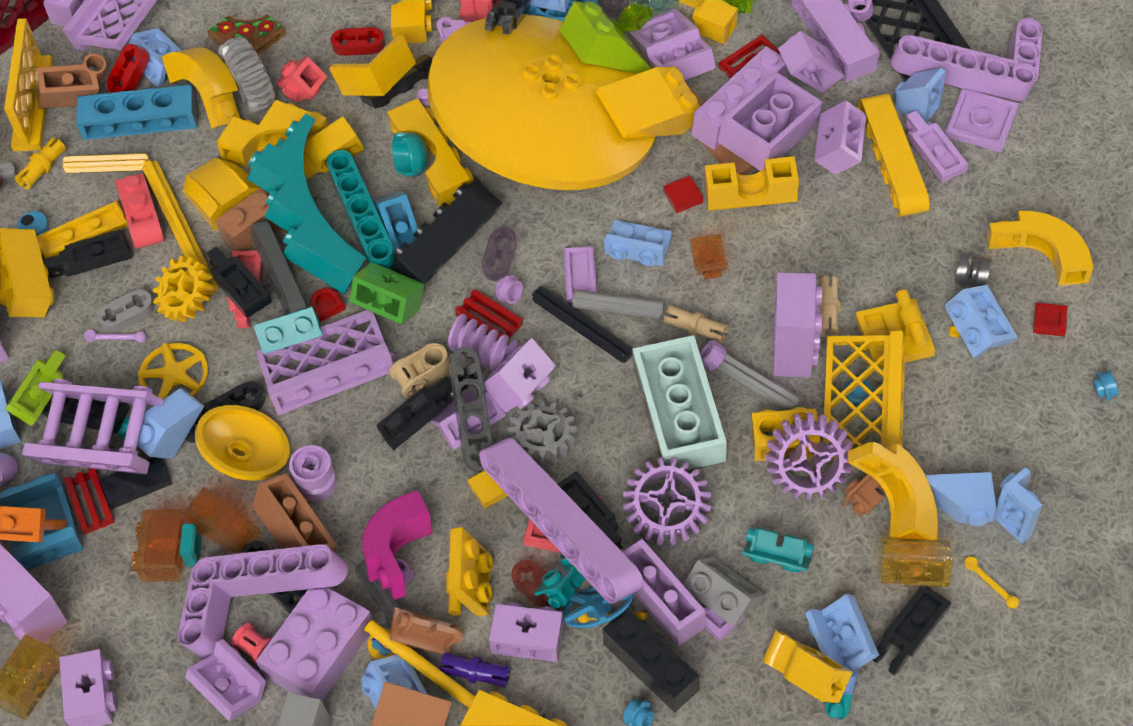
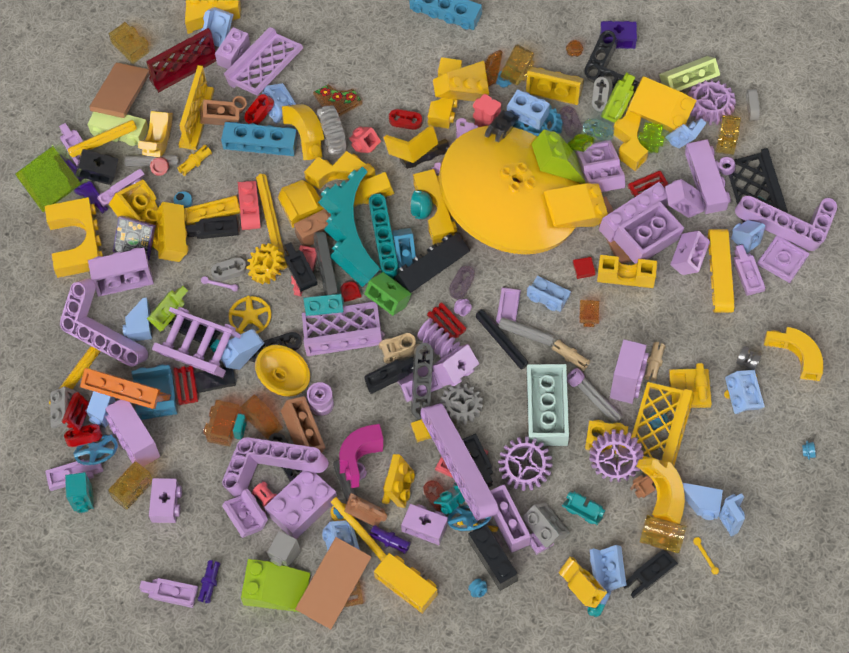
camera: 10 degrees right, 5 degrees up
(105, 162) = (234, 168): yellow axle -> none
(1050, 319) = (788, 399): red tile -> none

